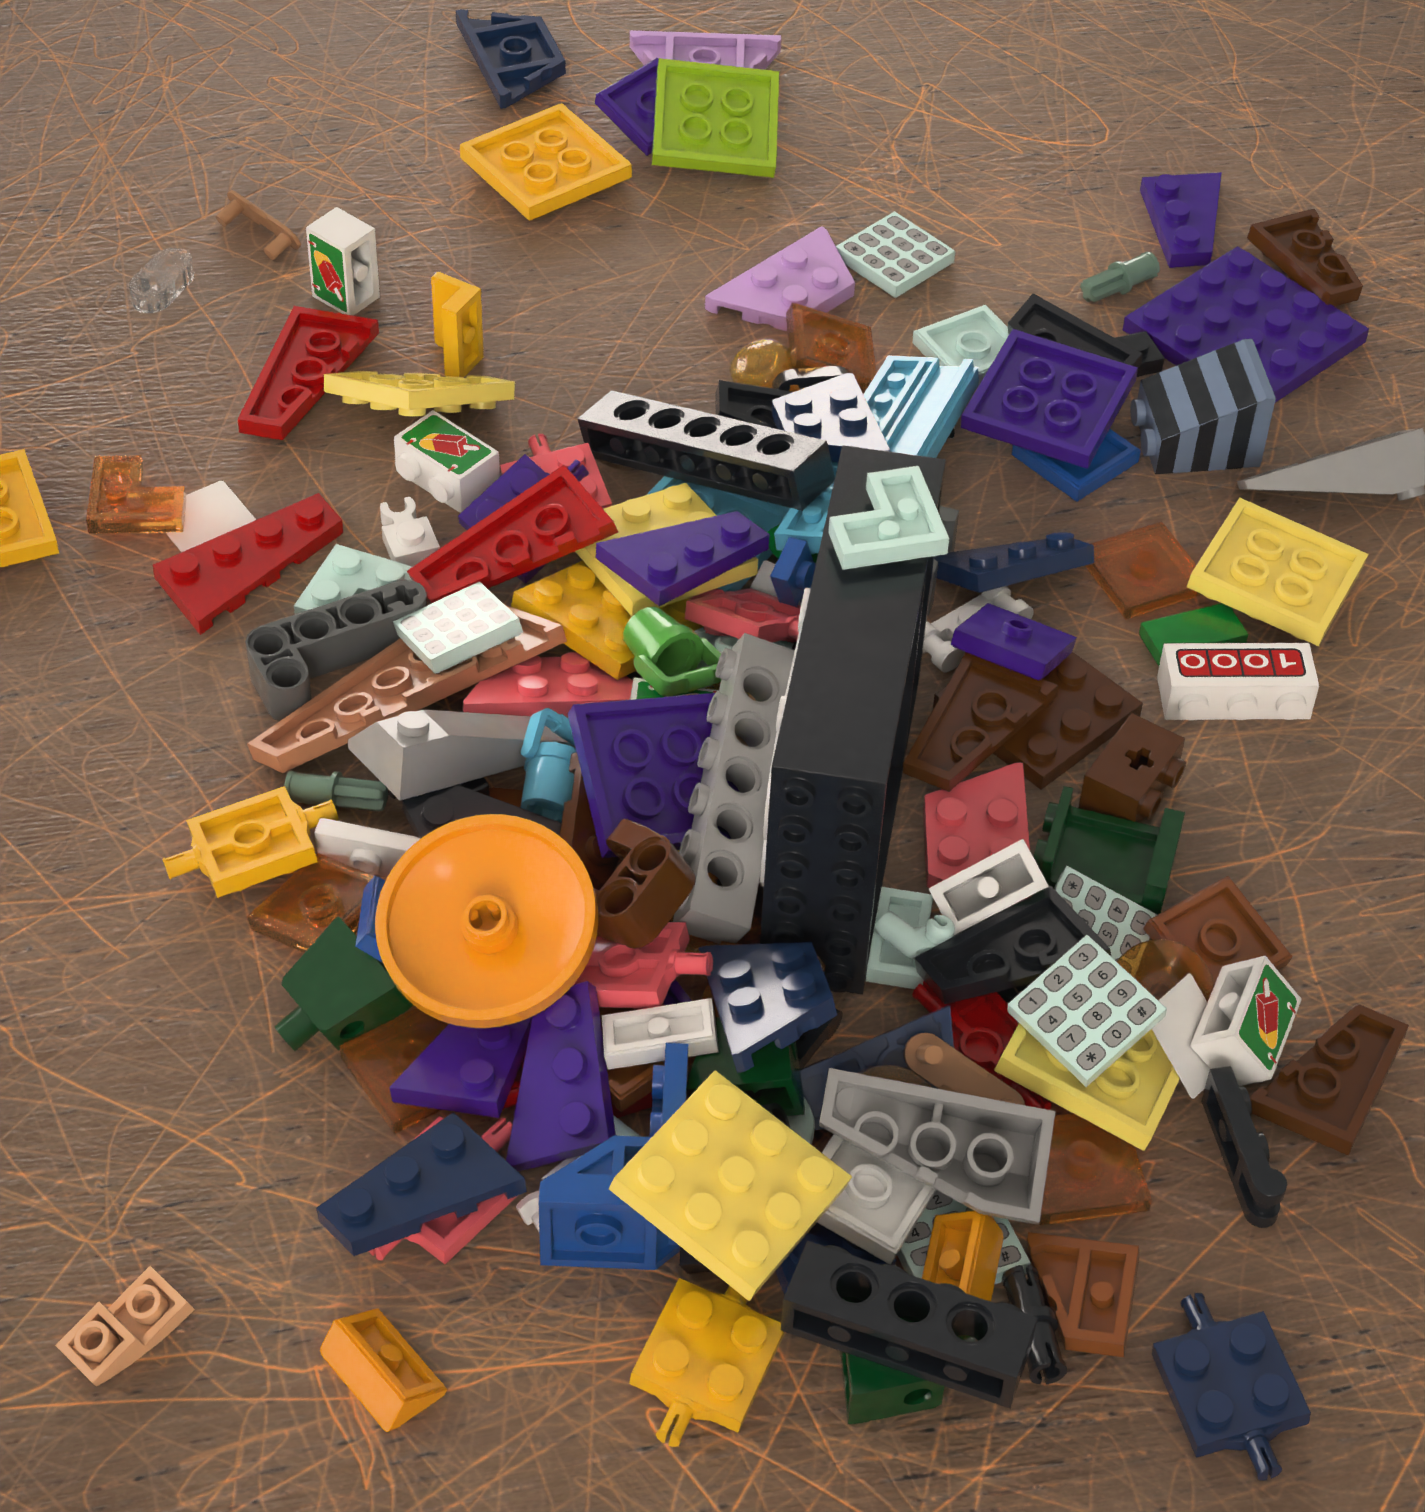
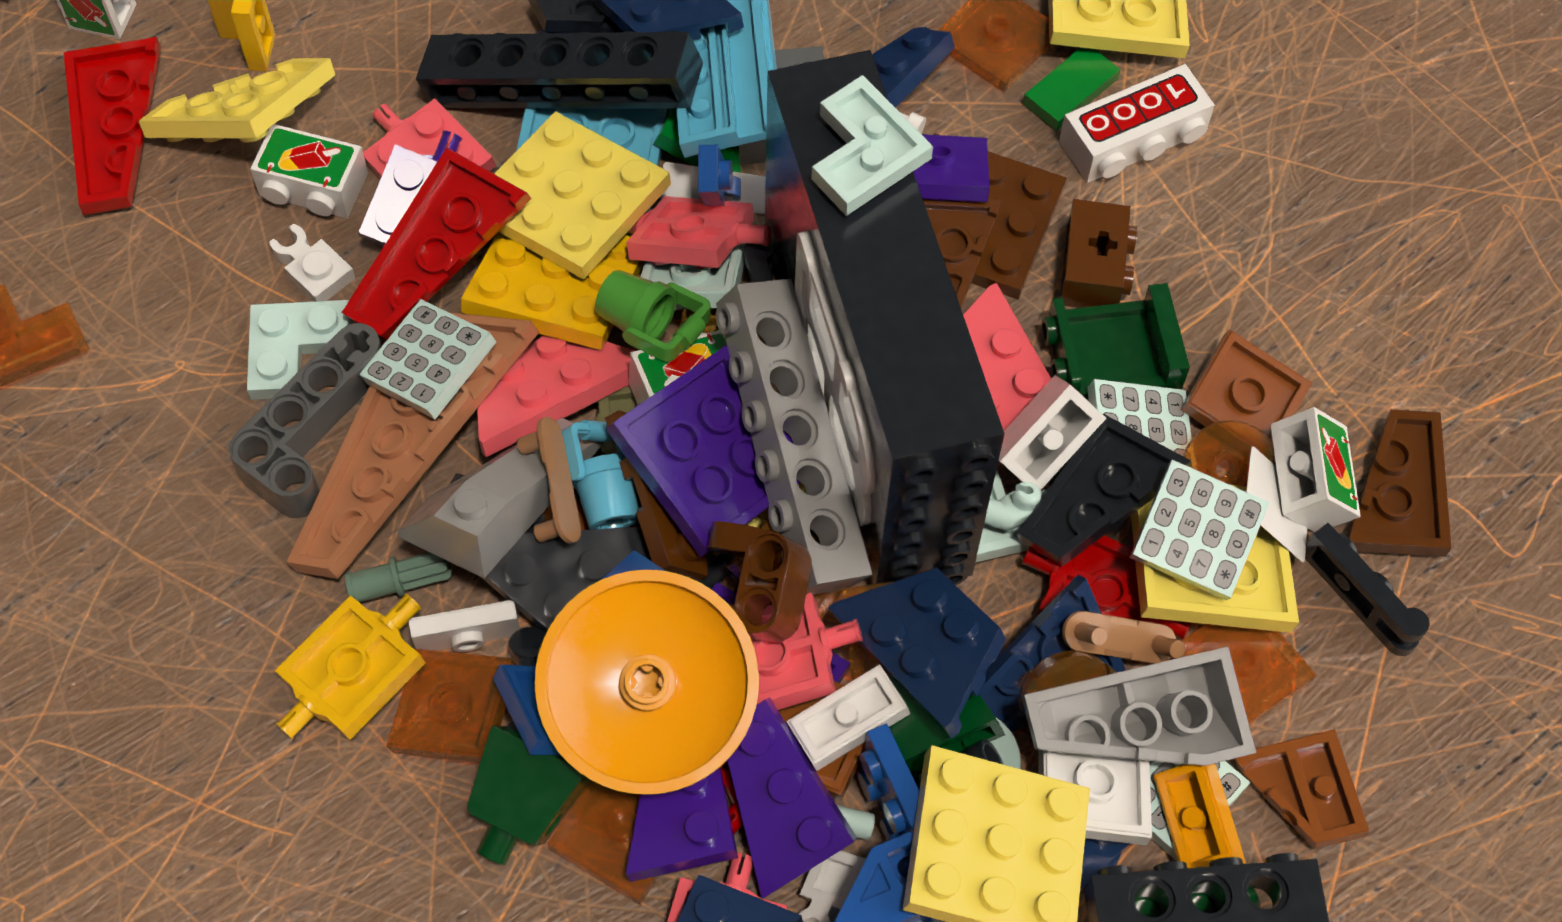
camera: 25 degrees left, 15 degrees up
(210, 514) = (110, 322): white sticker -> none
(229, 567) = (160, 367): red wing -> none
(504, 759) = (551, 444): none -> medium nougat piece
(683, 555) = (605, 201): dark purple wing -> none
(1029, 1298) = (1274, 829): black pin -> none
(1231, 1385) = (1461, 820): dark blue plate -> none

